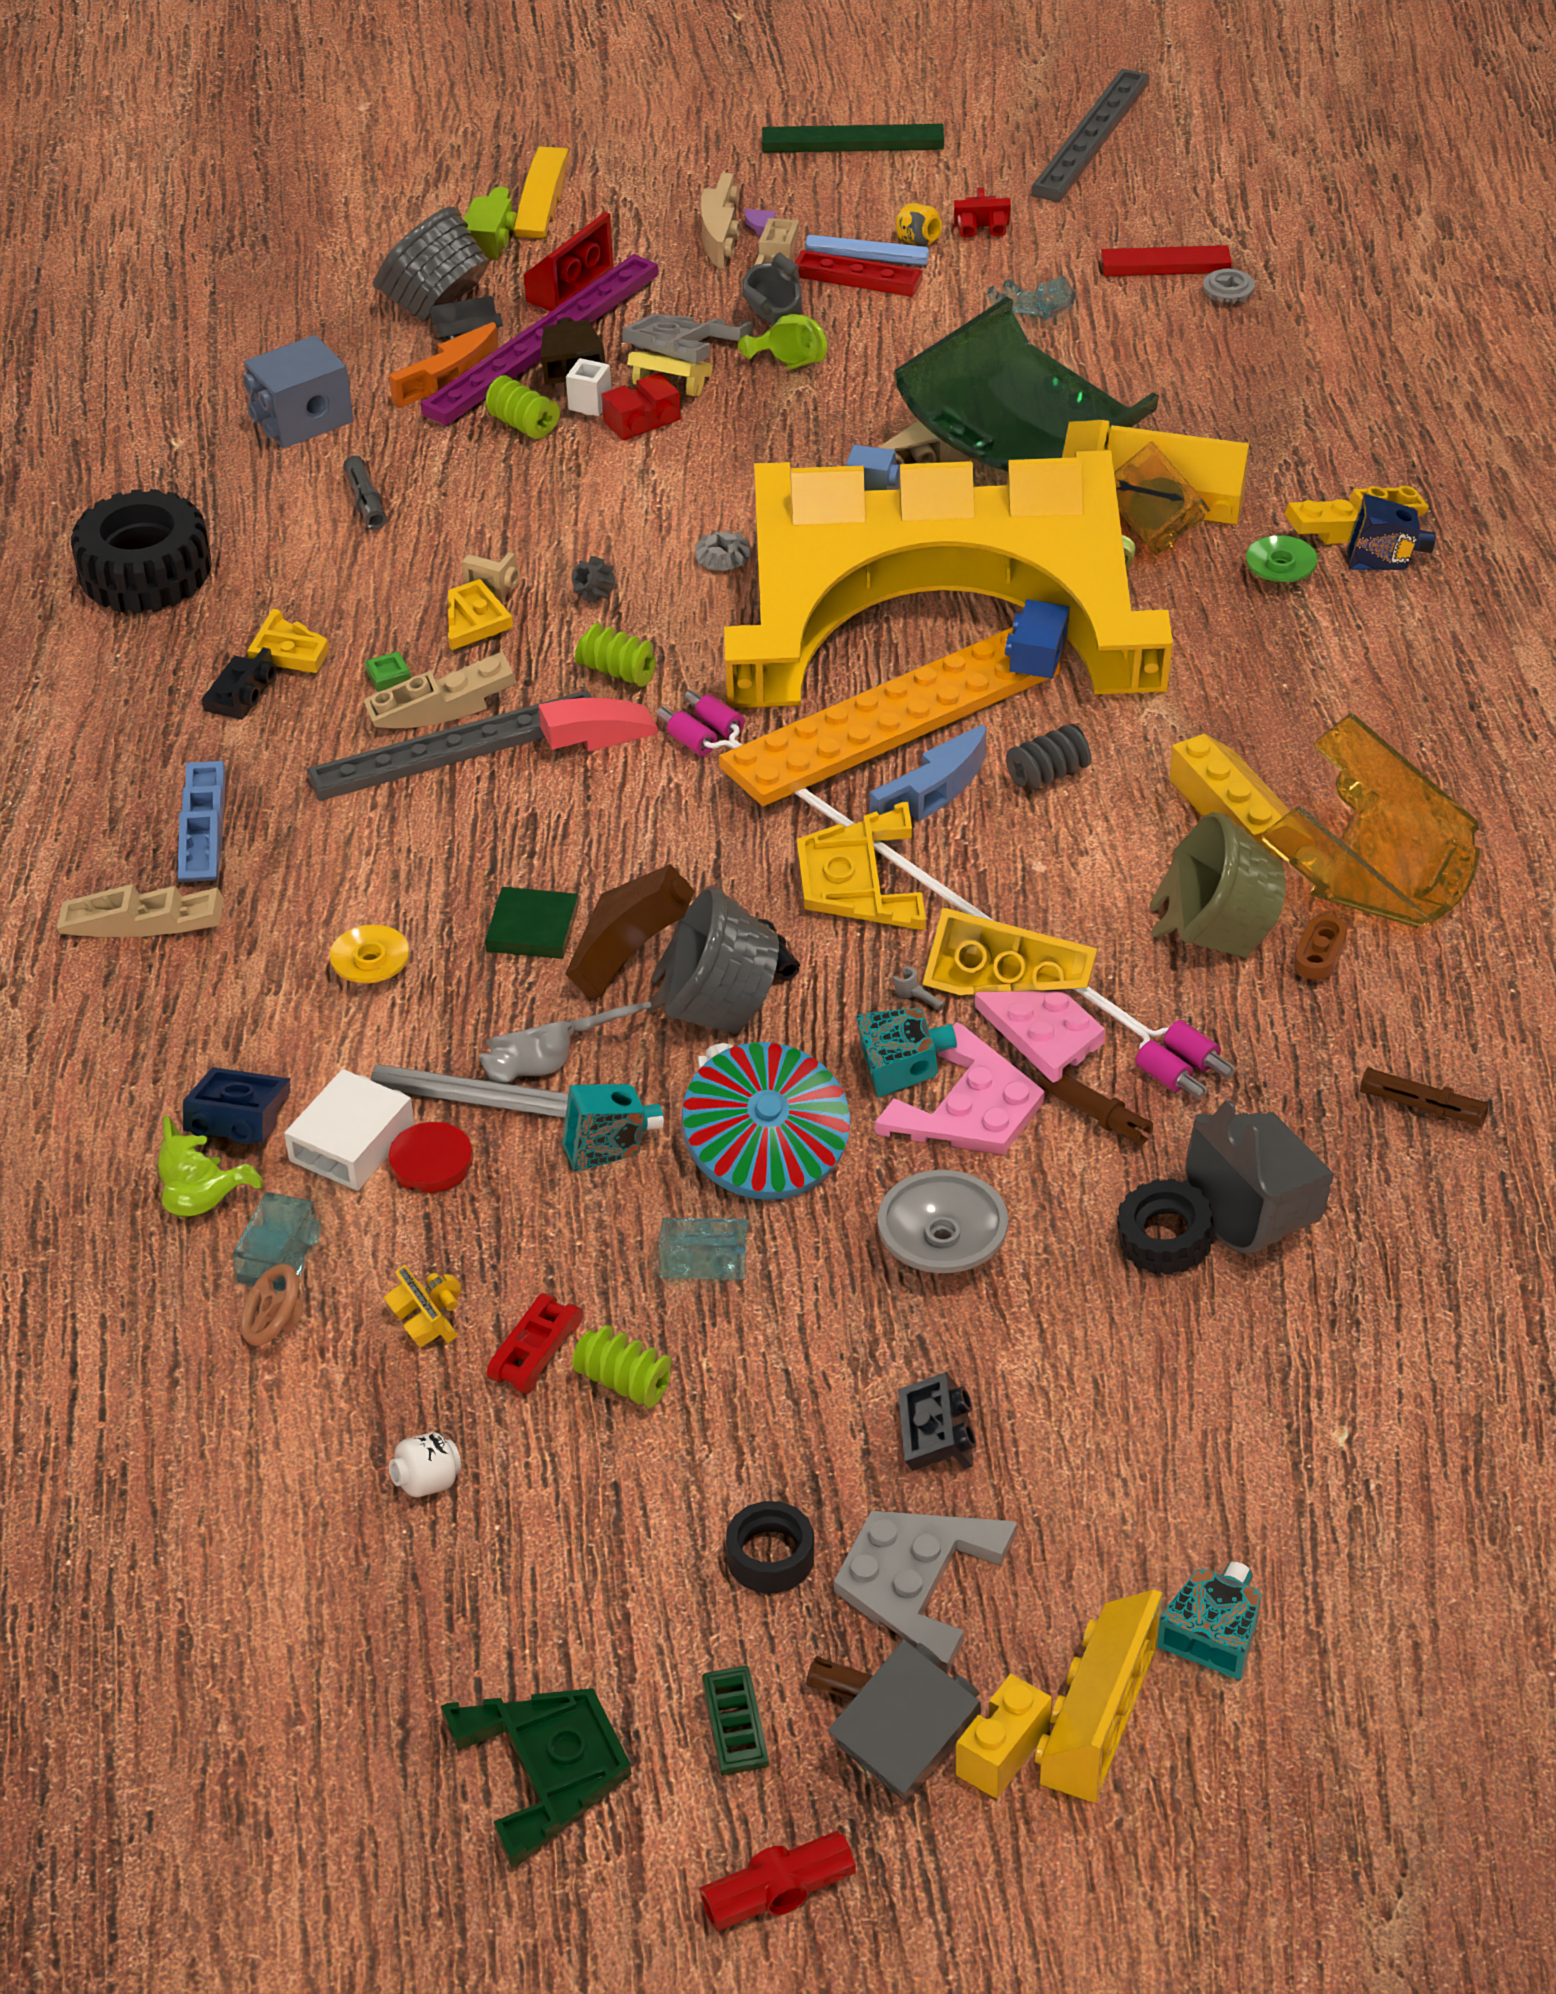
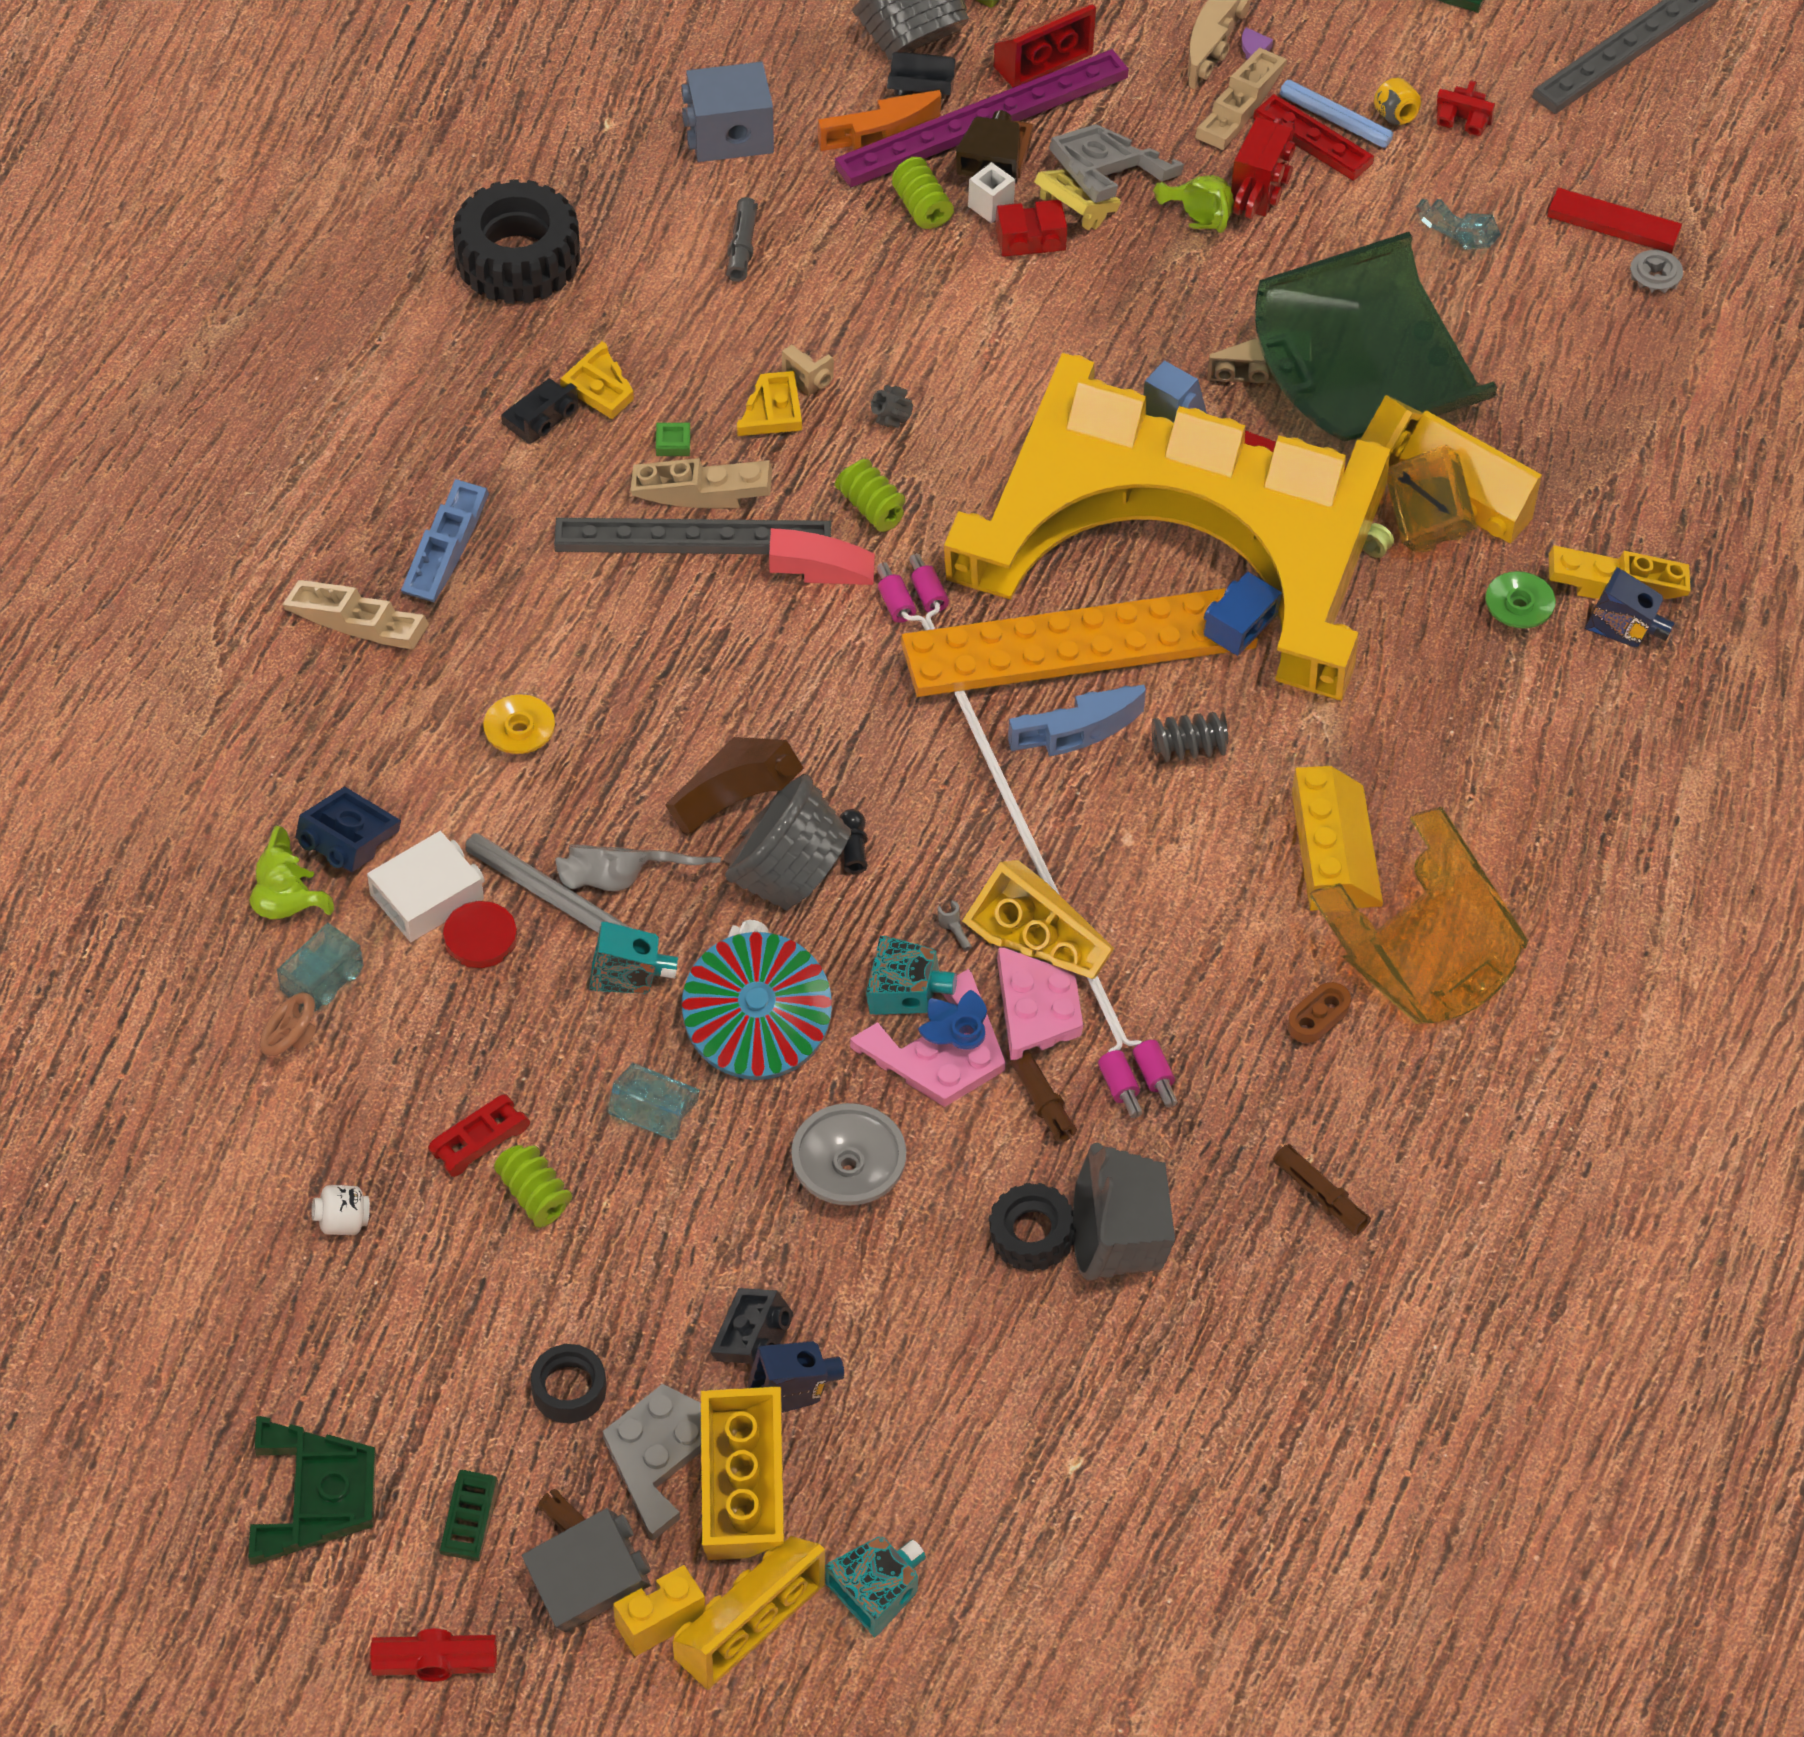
camera: 20 degrees right, 10 degrees up
(411, 1294) = (413, 1067): yellow hips -> none
(532, 922) = (670, 740): dark green tile -> none
(710, 552) = (1011, 410): light grey gear -> none
(771, 291) = (1211, 140): dark grey piece -> none
(834, 296) = (1262, 167): none -> red brick
(842, 872) = (950, 785): yellow wing -> none
(981, 1068) = (951, 1021): none -> blue plate
(1006, 1453) = (797, 1370): none -> dark blue torso
(1018, 1558) = (741, 1472): none -> yellow slope
(1221, 888) = (1254, 929): olive piece -> none

